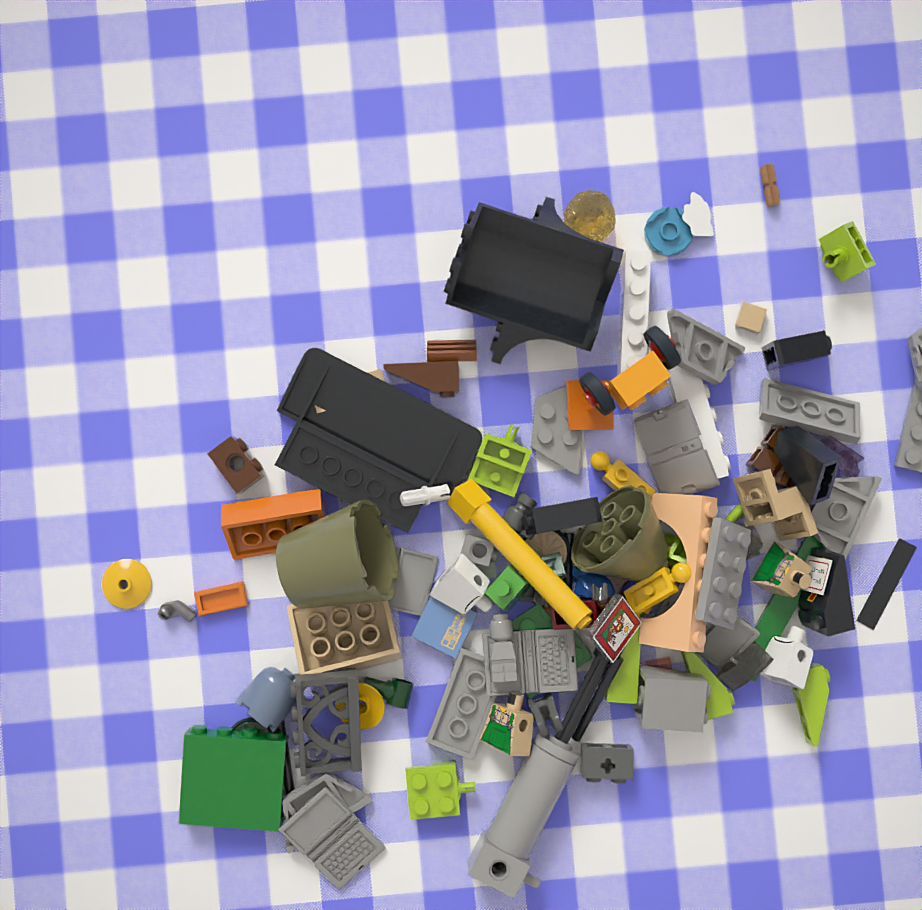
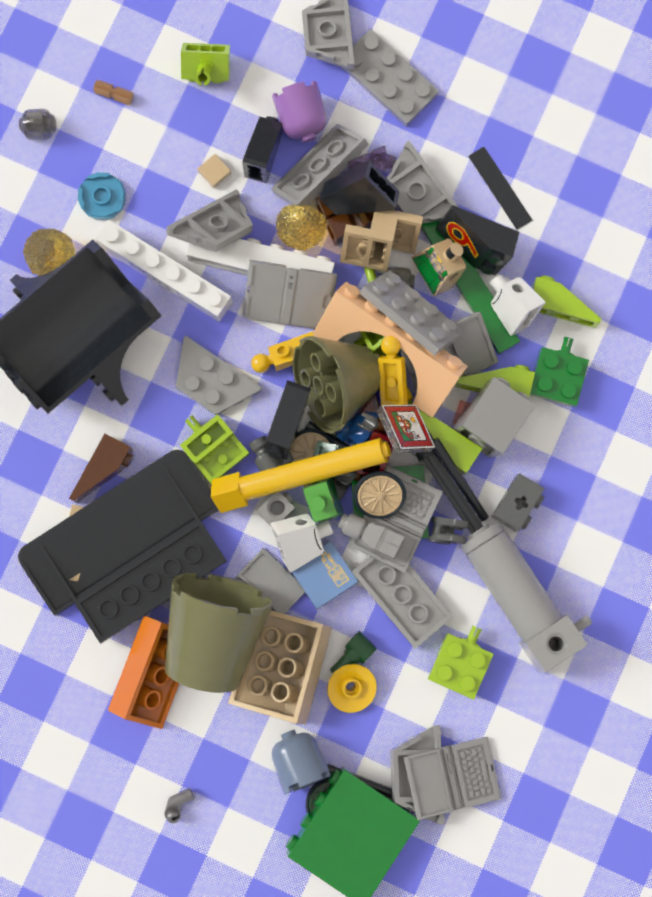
camera: 65 degrees left, 5 degrees down
(138, 581) = (137, 827): yellow dish -> none
(221, 598) = (189, 759): orange tile -> none
(223, 459) = (65, 681): reddish brown brick -> none
(348, 747) = (381, 716): dark grey fence -> none
(425, 495) = (202, 526): white axle -> none
(451, 350) = (92, 434): dark orange tile -> none
(509, 727) = (441, 567): torso -> none
(542, 636) = (379, 494): none -> tan wheel
(581, 414) = (208, 344): orange piece -> none
(636, 381) = (208, 289): brick -> none
(698, 216) = (103, 165): white sticker -> none
(701, 136) = (37, 124): none -> clear smoke head
(744, 426) = (300, 226): none -> clear yellow hair
(744, 669) = (502, 336): clear smoke slope -> none
(744, 734) = (559, 375): none -> green plate
(819, 573) = (458, 235): white sticker -> none
(851, 364) = (301, 111): none -> medium lavender cylinder

